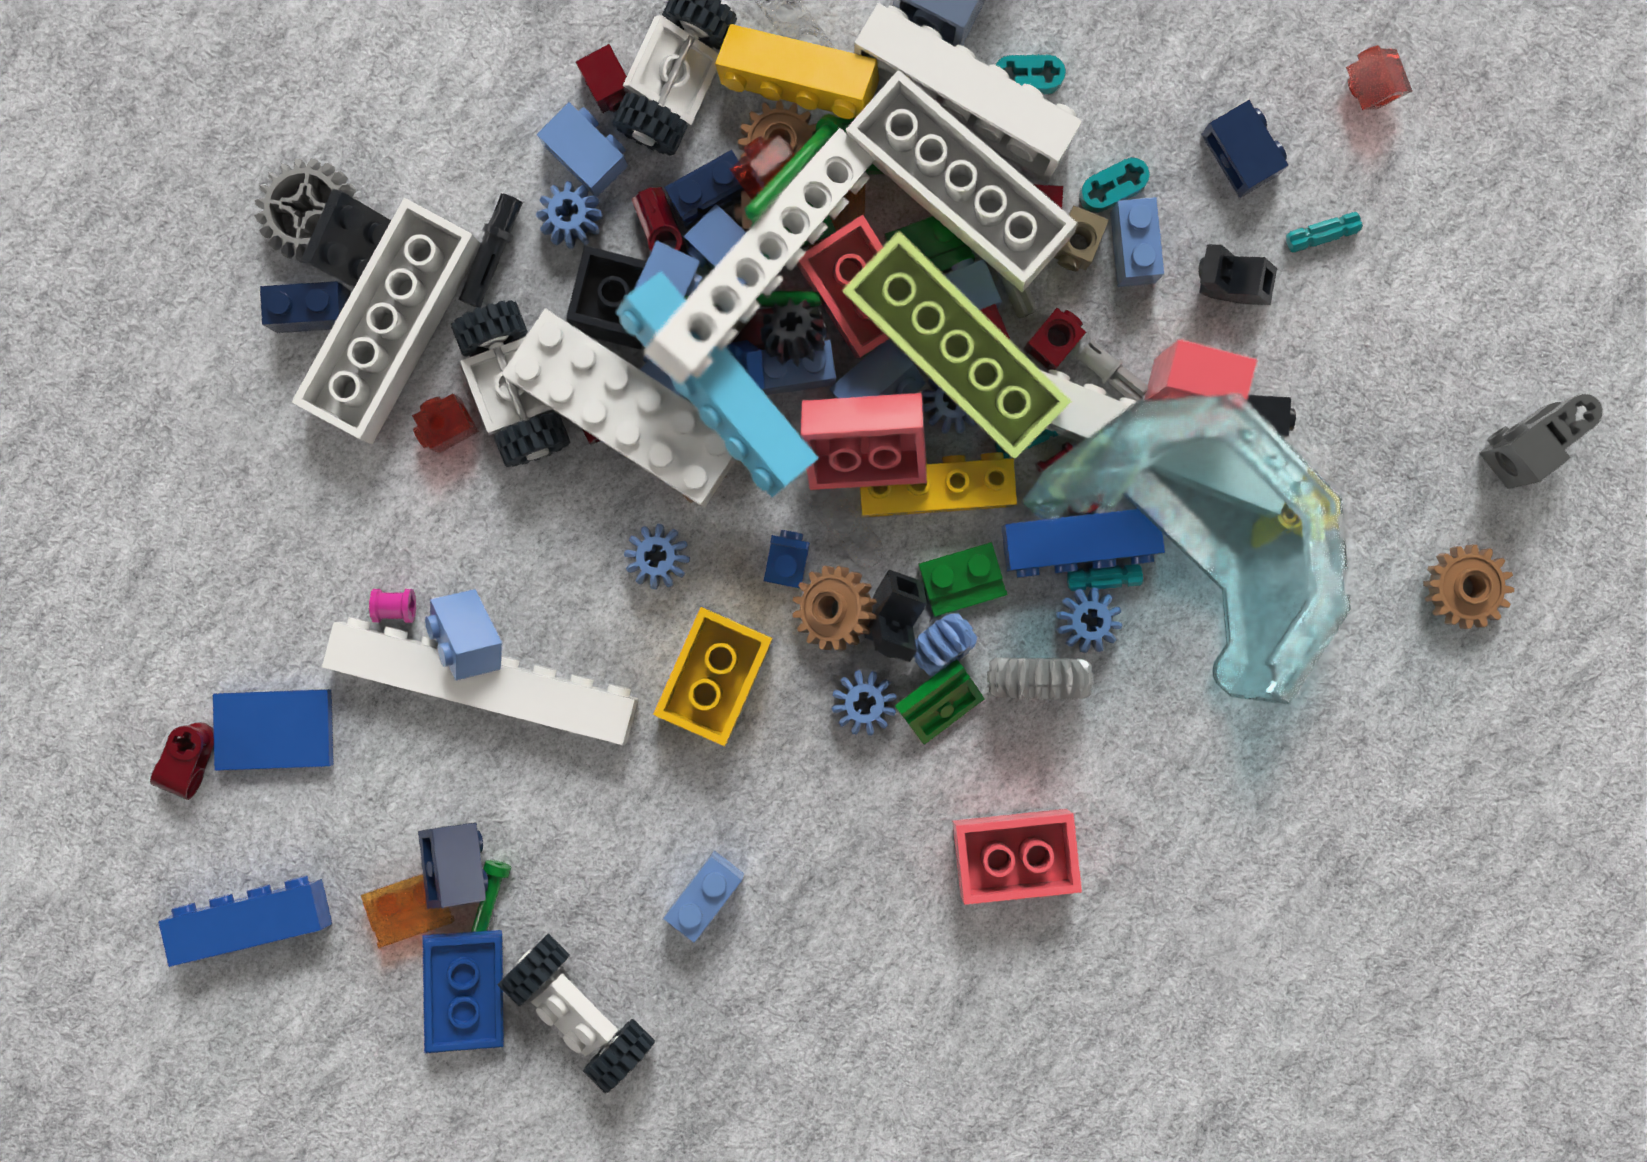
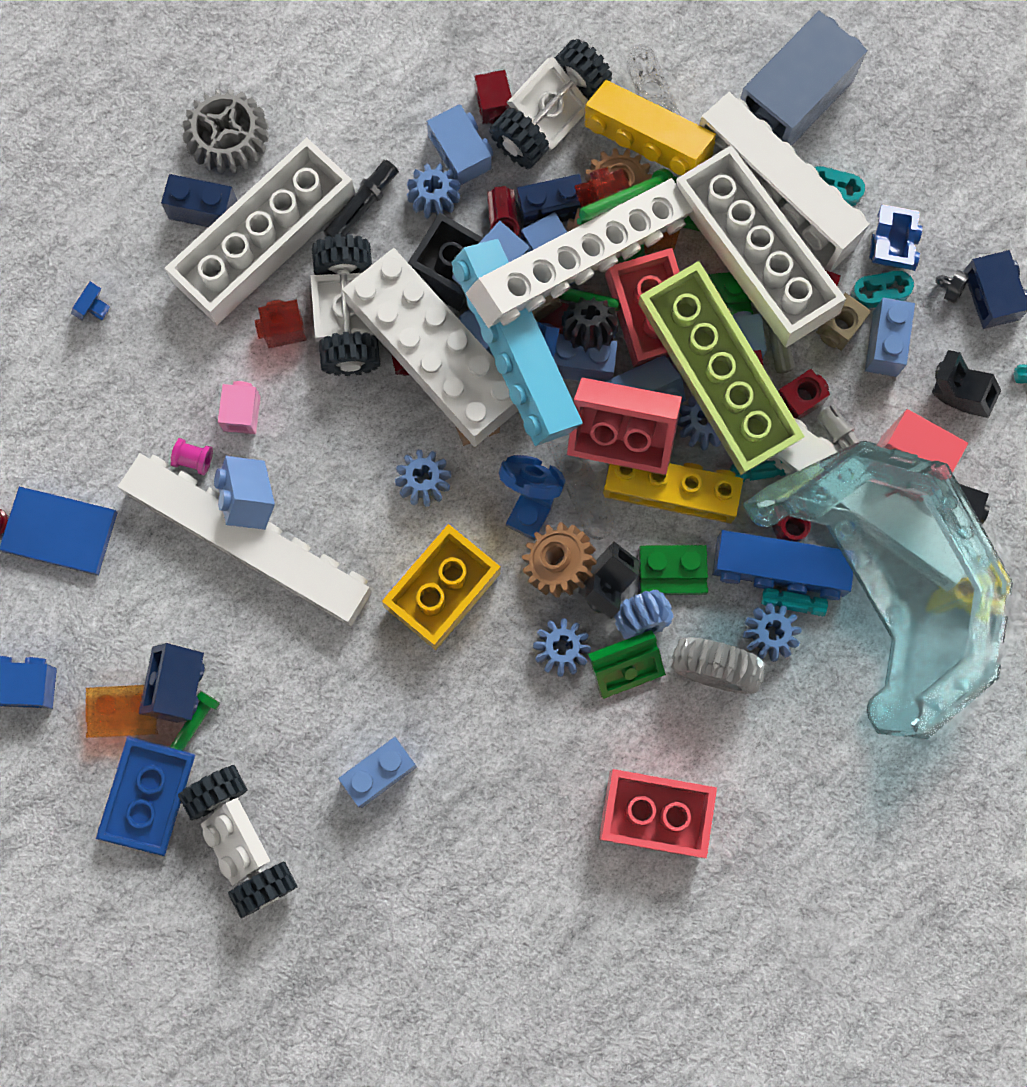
camera: 10 degrees right, 10 degrees down
(219, 461) = (89, 303): none -> blue tile
(345, 238) = (248, 155): black plate -> none
(427, 534) = (239, 408): none -> bright pink brick
(777, 524) = (531, 479): none -> blue tile
(1113, 120) = (896, 238): none -> blue cylinder
(1193, 158) = (954, 286): none -> black tile

